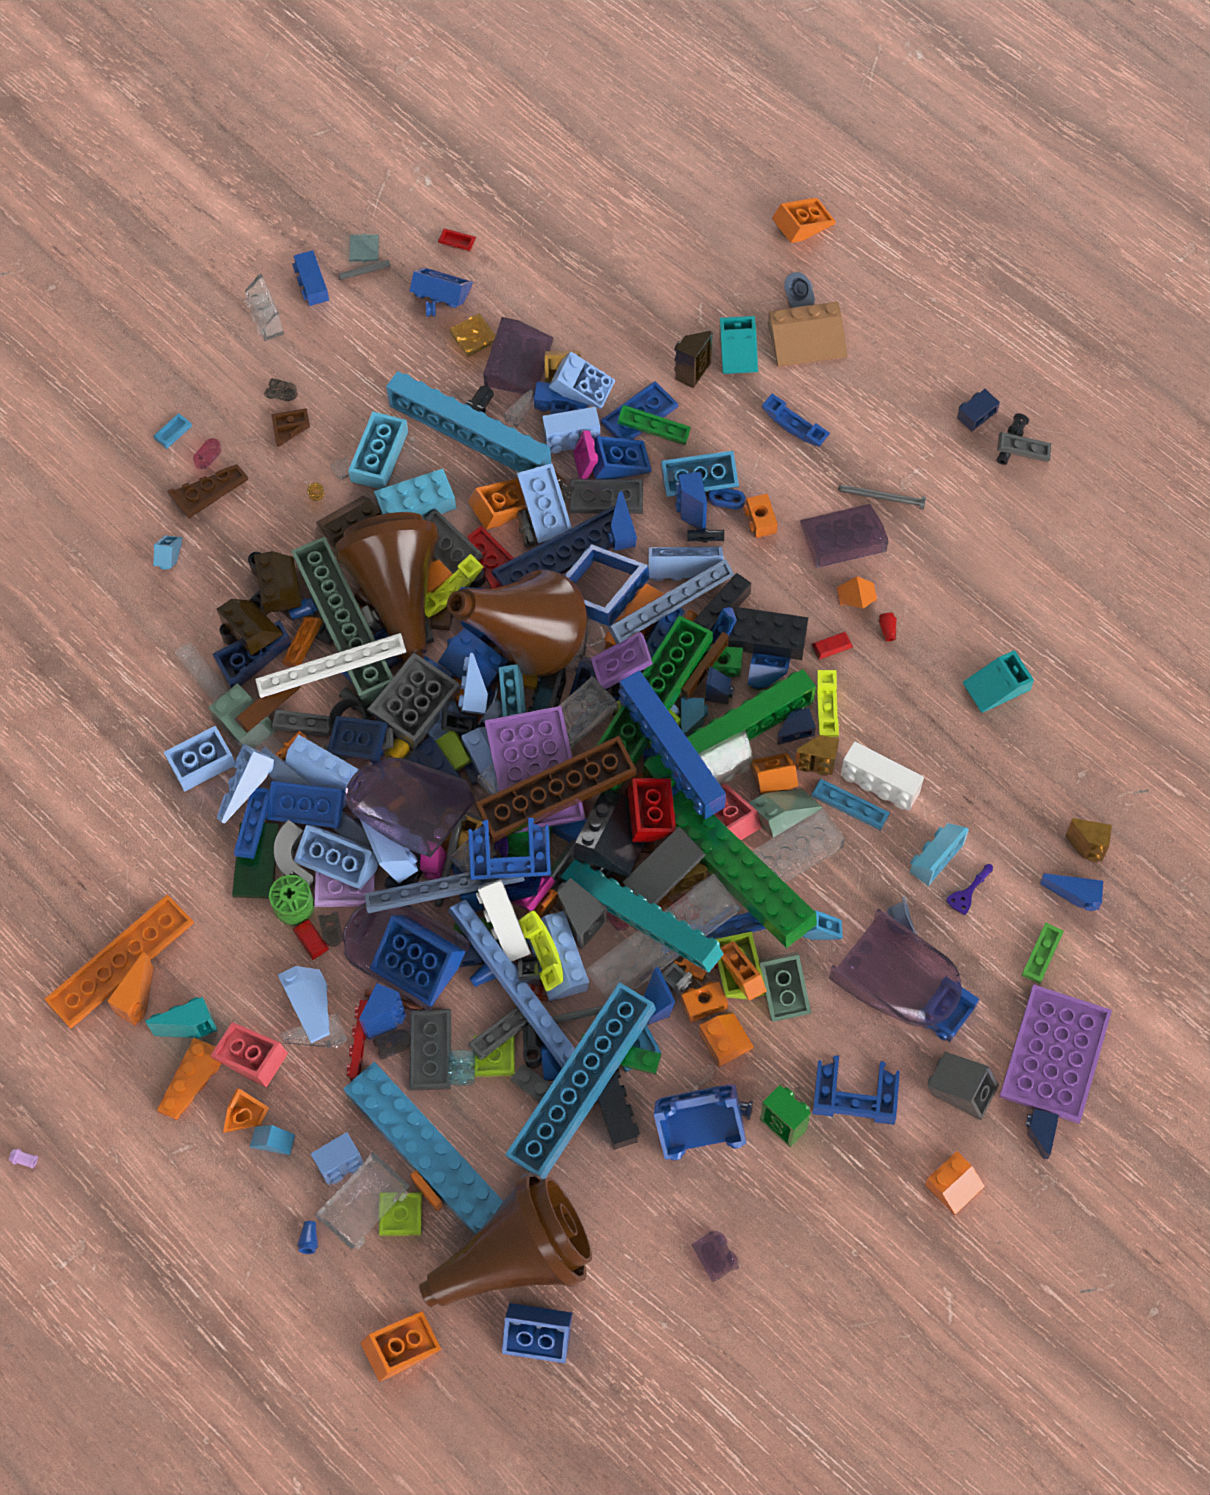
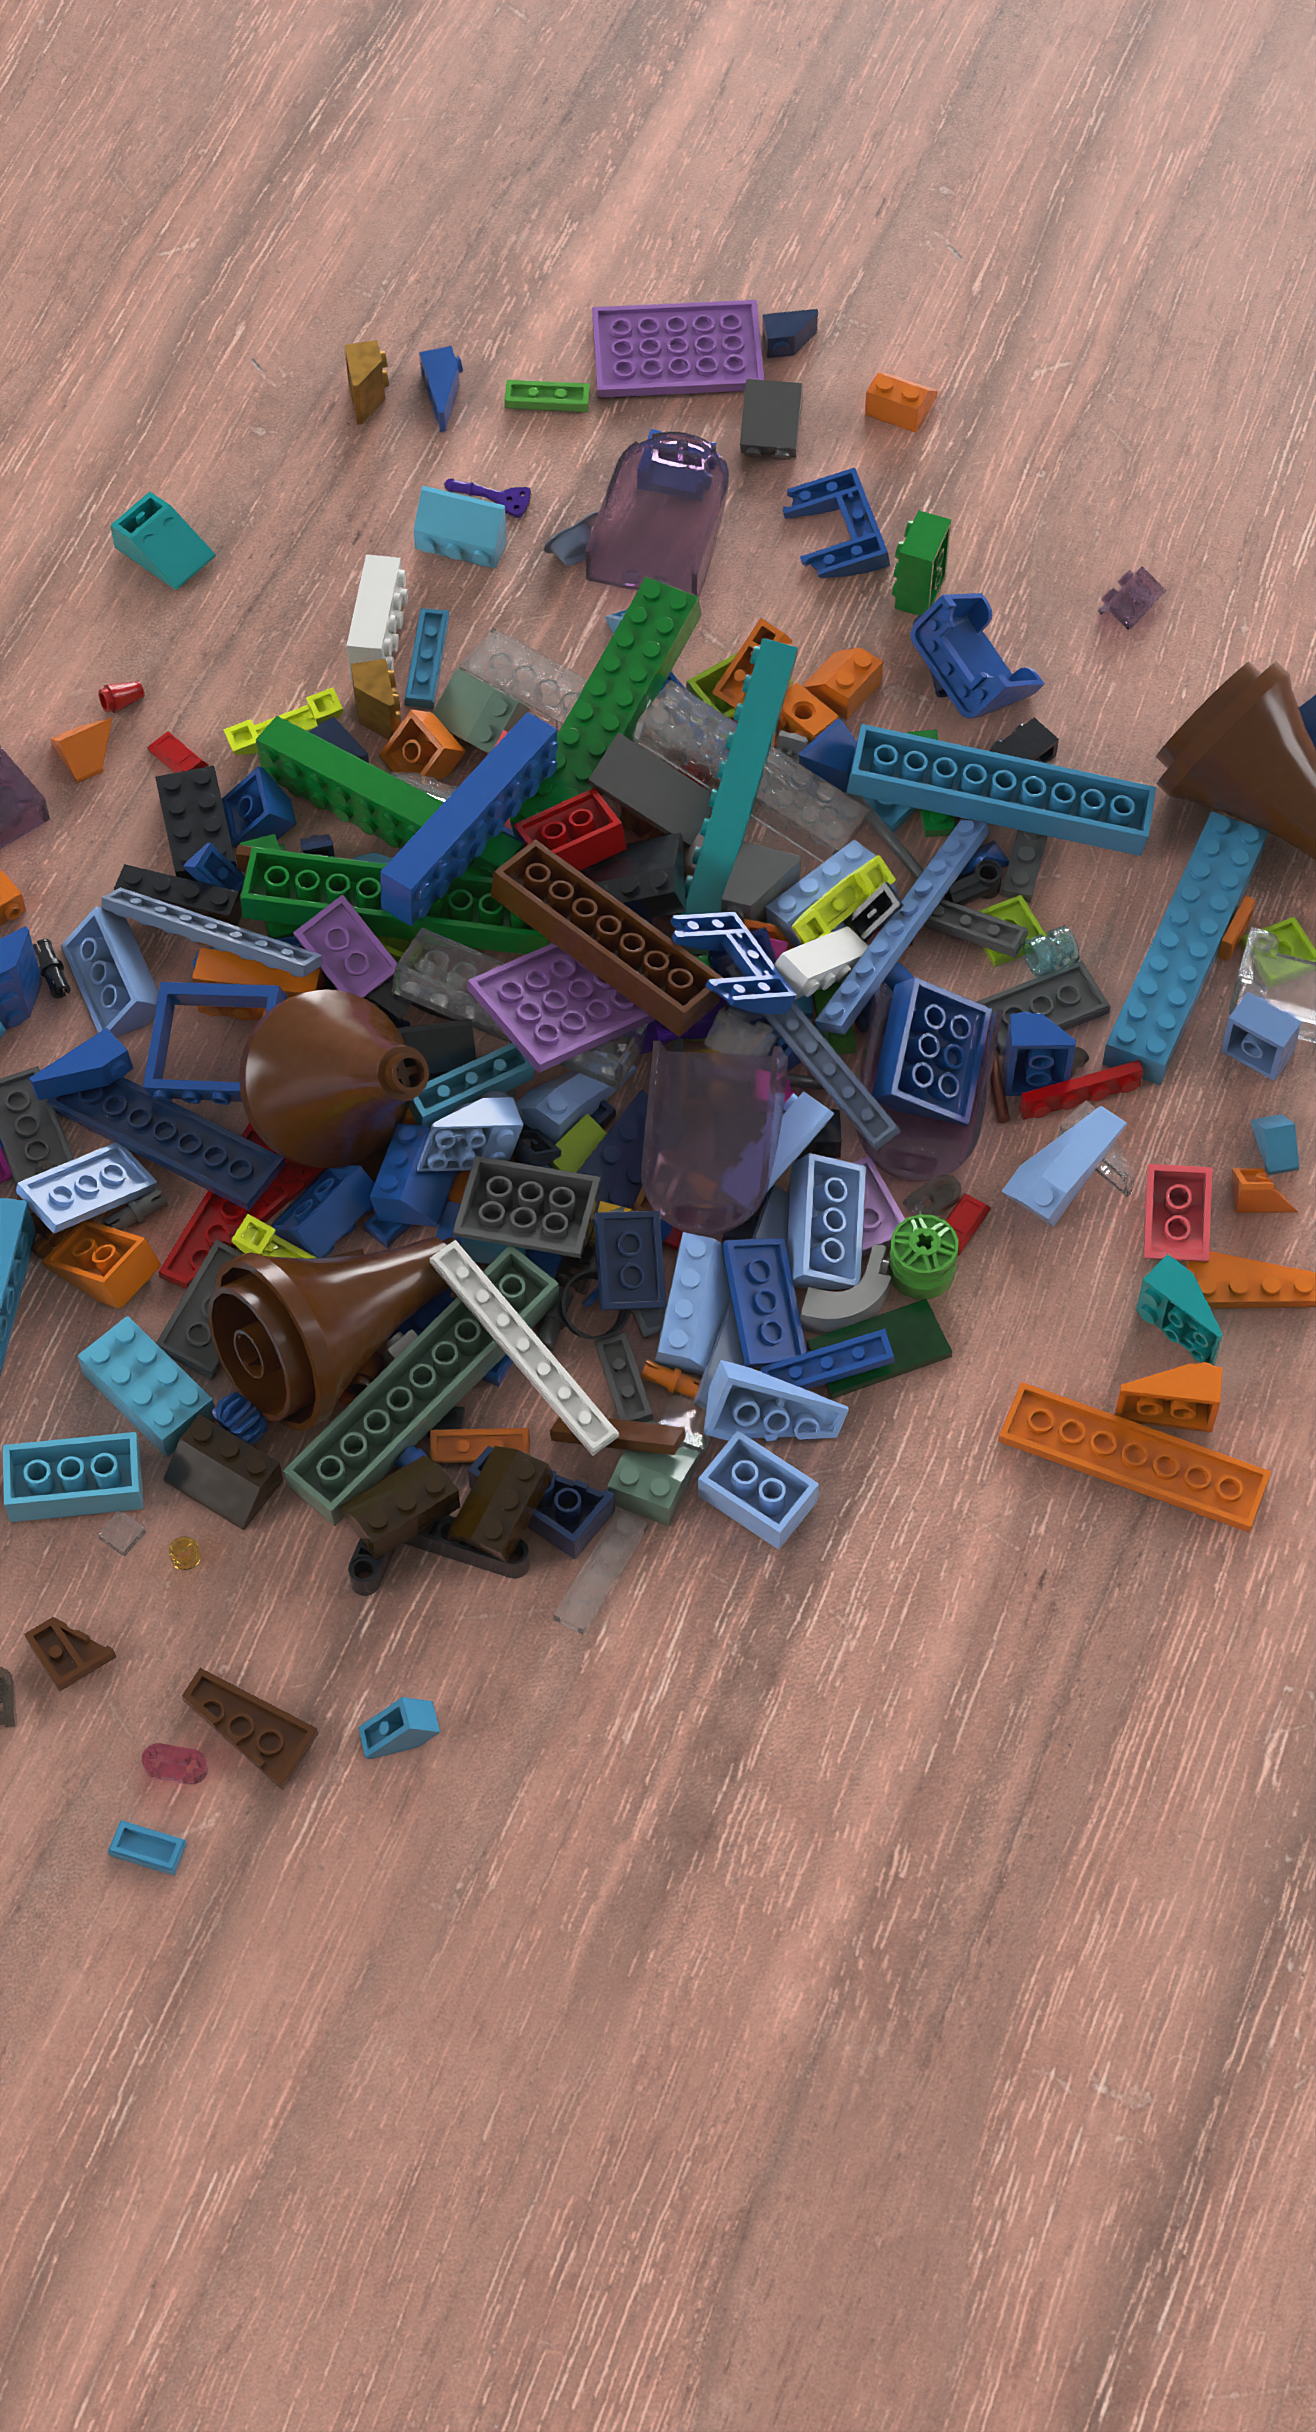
camera: 115 degrees left, 5 degrees down
(785, 986) = (722, 634): sand green slope -> none

